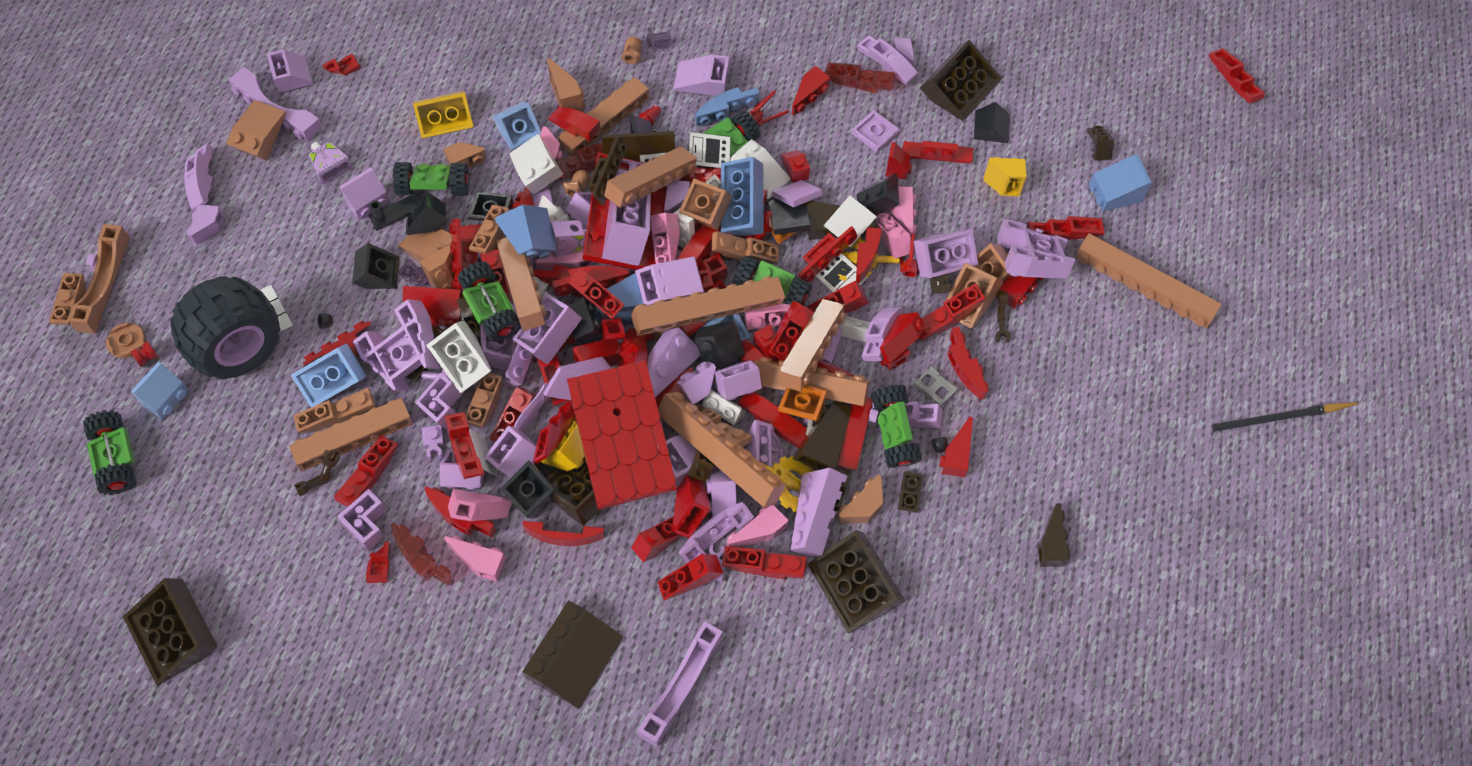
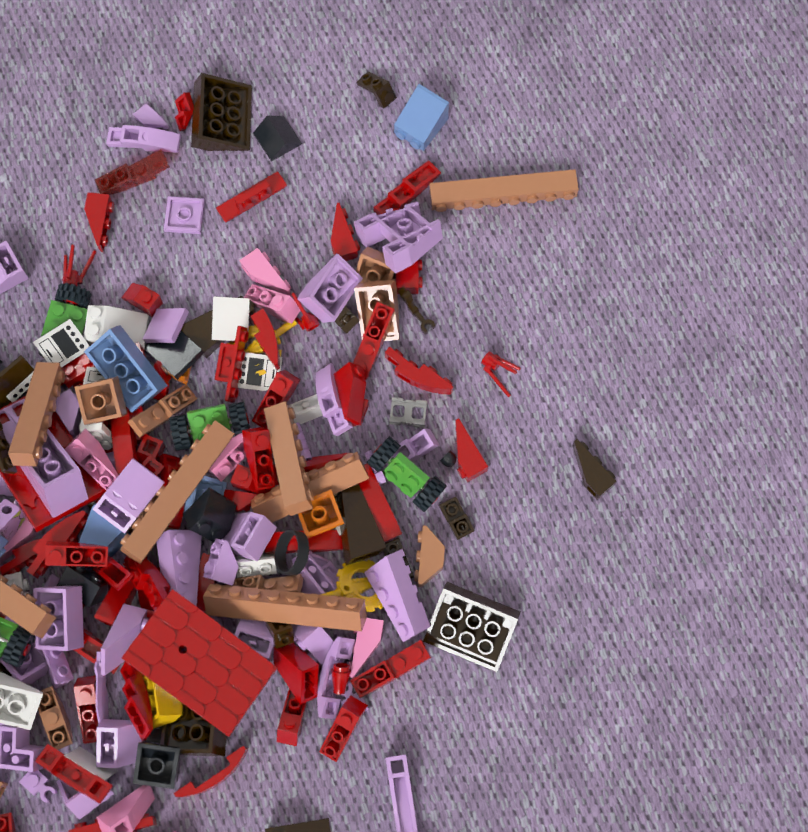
camera: 35 degrees left, 10 degrees up
(719, 107) = (33, 292): medium blue slope -> none
(720, 535) = (340, 677): none -> red cone
(761, 419) = (302, 554): none -> black tyre
(880, 195) = (236, 275): black slope -> none
(898, 162) = (228, 233): red slope -> none
(937, 58) = (185, 108): none -> red slope
(986, 224) = (341, 238): none -> red slope
(1006, 175) = (326, 179): yellow slope -> none
(1035, 399) = (493, 361): none -> red plant
(1310, 411) = (702, 210): black piece -> none

